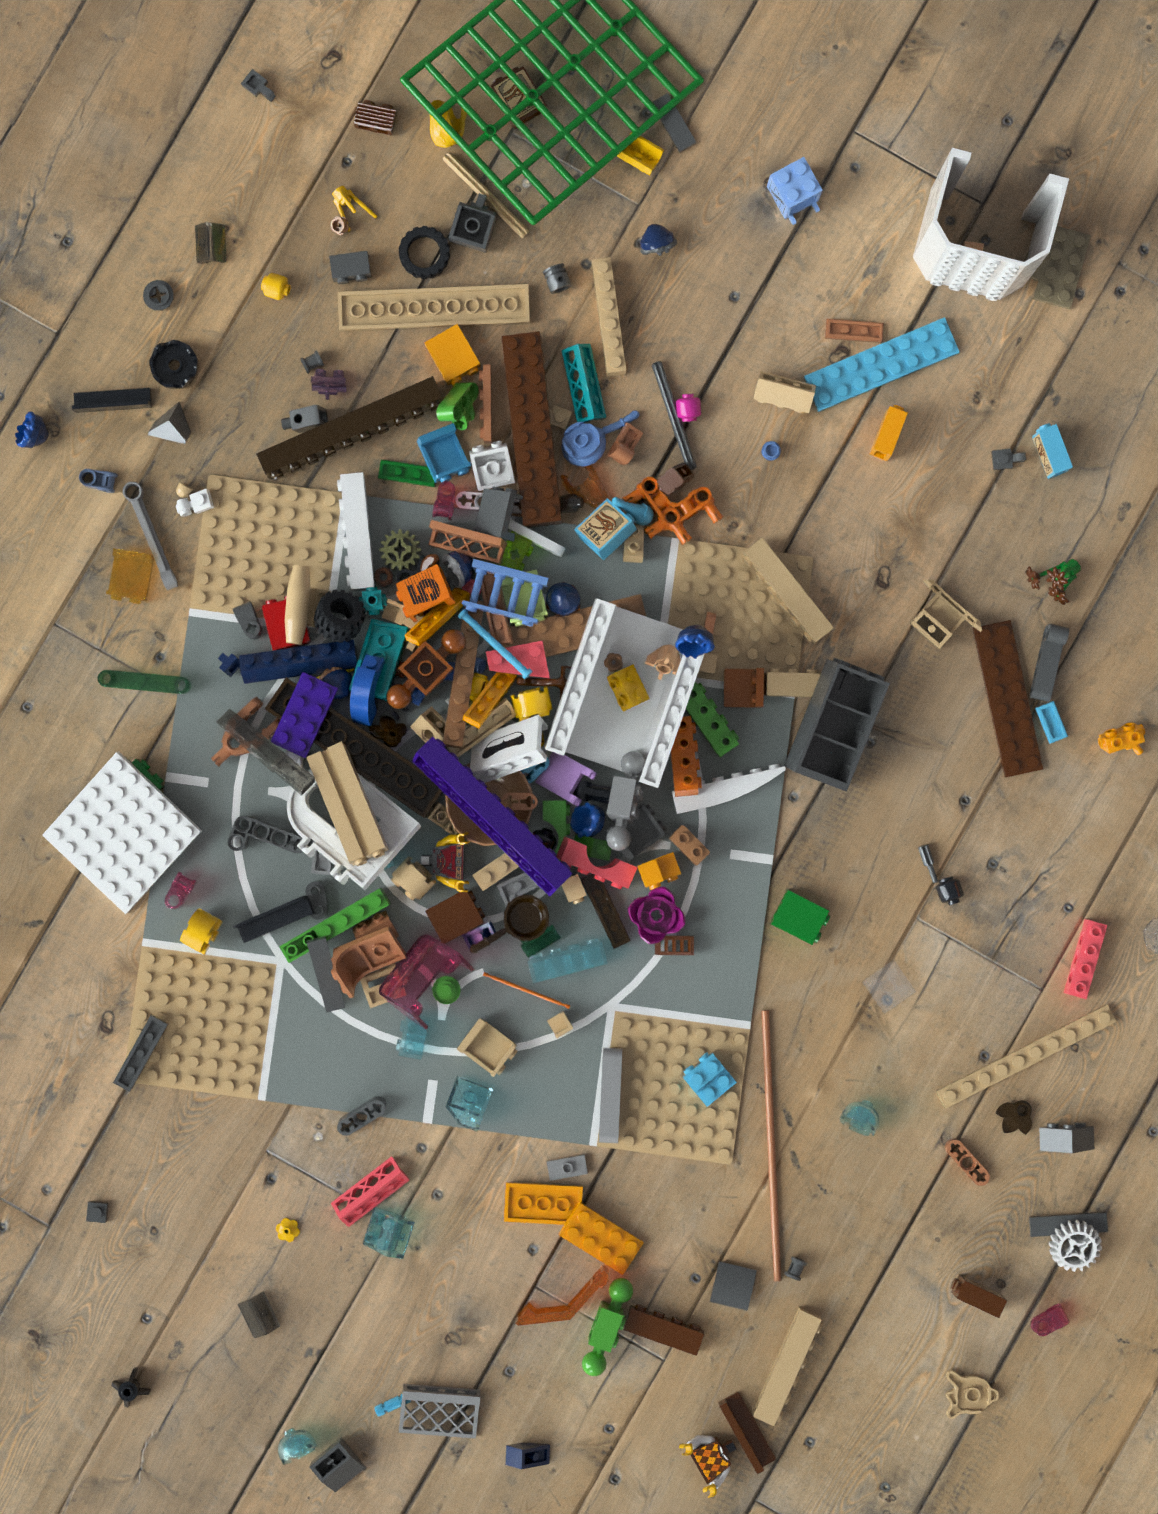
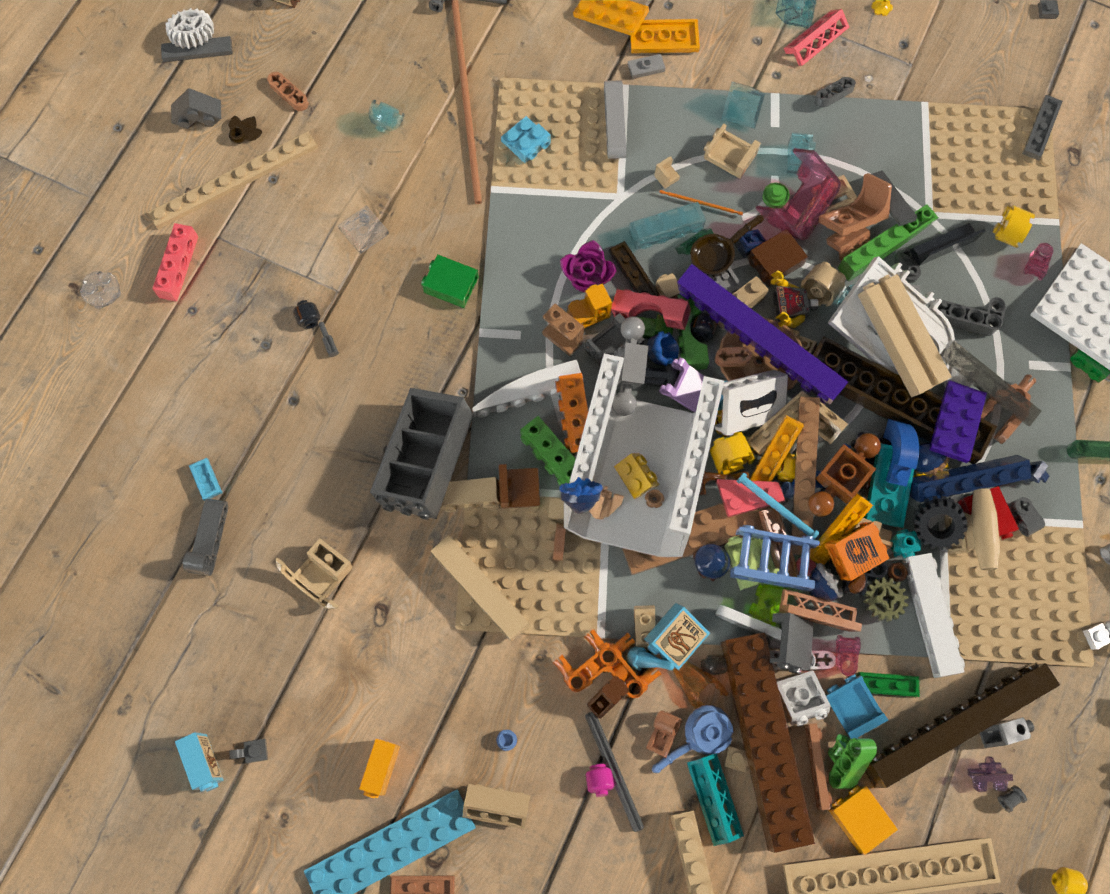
camera: 175 degrees right, 15 degrees down
(388, 731) = (868, 422): dark brown plate -> none
(690, 946) = (561, 241): reddish brown slope -> none
(1007, 699) = (250, 500): reddish brown plate -> none
(1068, 570) = (185, 633): reddish brown plant -> none
(1125, 737) = (132, 467): light orange brick -> none

